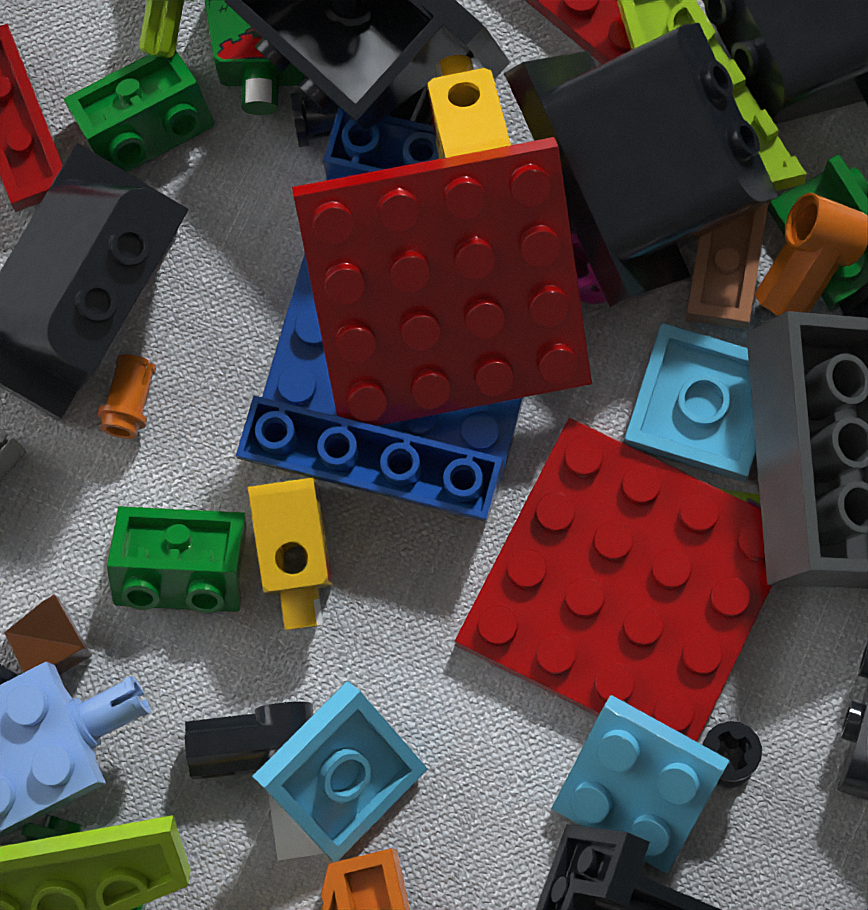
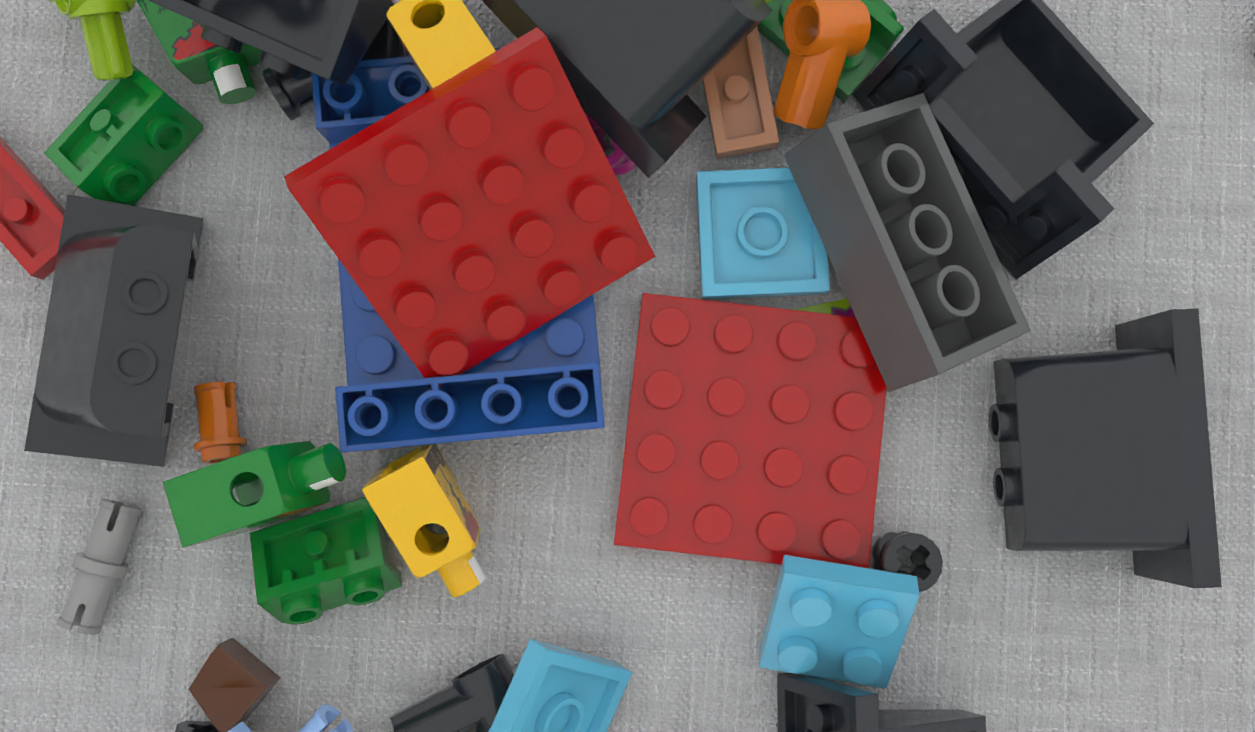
camera: 25 degrees left, 10 degrees up
(147, 461) = (268, 483): none -> green torso

